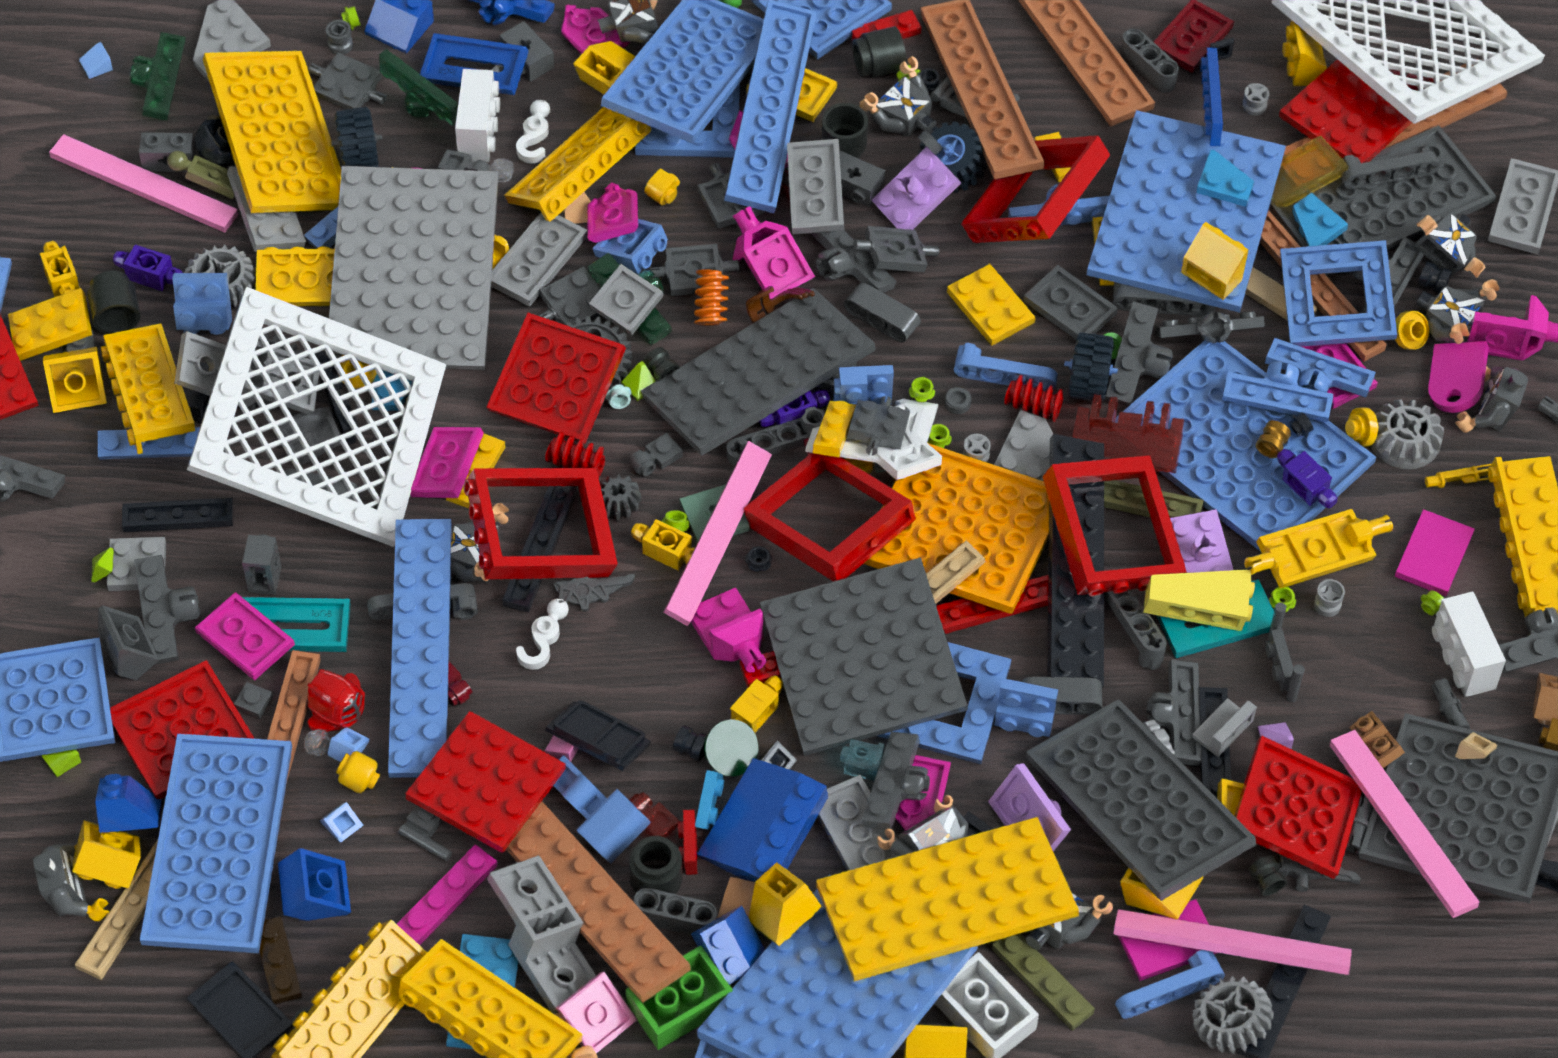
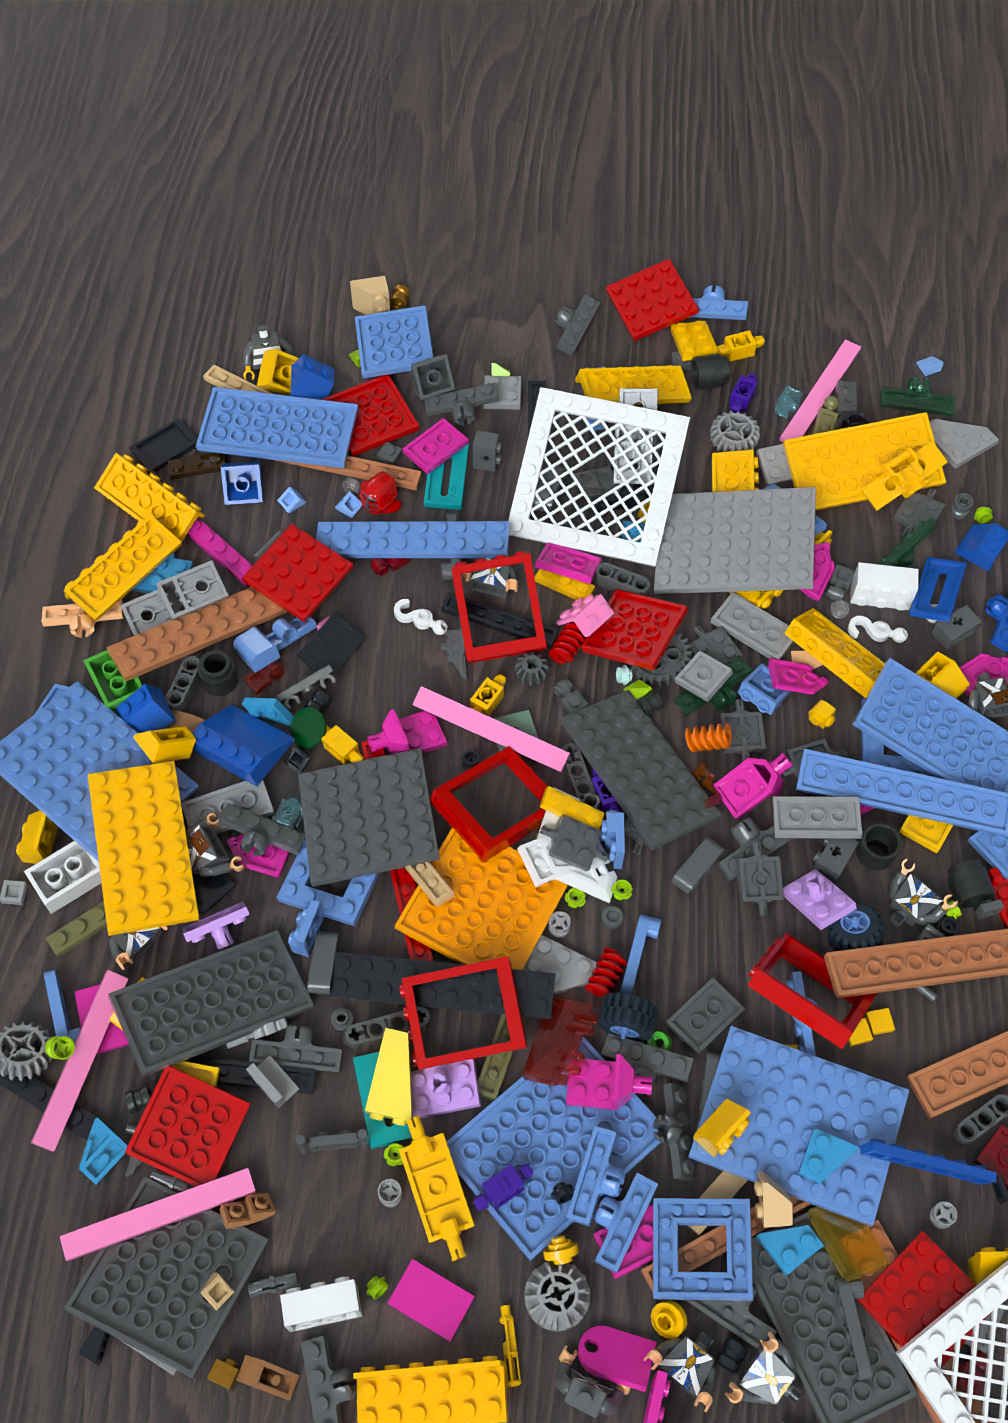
camera: 95 degrees right, 5 degrees up
(74, 379) = (650, 350): yellow slope -> none
(164, 217) = (788, 402): none -> clear light blue brick
(202, 302) = (706, 418): medium blue plate -> none
(299, 85) = (907, 480): none -> yellow piece
(356, 137) = (853, 508): black wheel -> none
(357, 772) = (323, 506): yellow head -> none
(475, 389) = (616, 574): none -> dark grey beam
(533, 434) = (587, 614): none -> bright pink bracket
(597, 1012) = (115, 628): bright pink plate -> none
(664, 756) = (305, 685): none -> plate
(677, 520) = (510, 702): lime plate -> none
(688, 831) = (235, 697): red plate -> none
(907, 39) = (989, 908): none -> dark grey plate
(930, 142) = (857, 904): dark grey tile -> none
(990, 304) = (708, 953): yellow plate -> none
(1129, 677) = (341, 1026): none -> dark grey plate
(1174, 379) = (605, 1084): none -> dark pink plate
(1227, 959) = (64, 1048): none -> lime wheel
(1273, 438) = (547, 1164): pearl gold wheel -> none
(1277, 732) = (267, 1128): lavender slope -> none
(1281, 229) = (774, 1202): none -> tan slope
(1339, 905) = (101, 1151): none -> dark azure wing

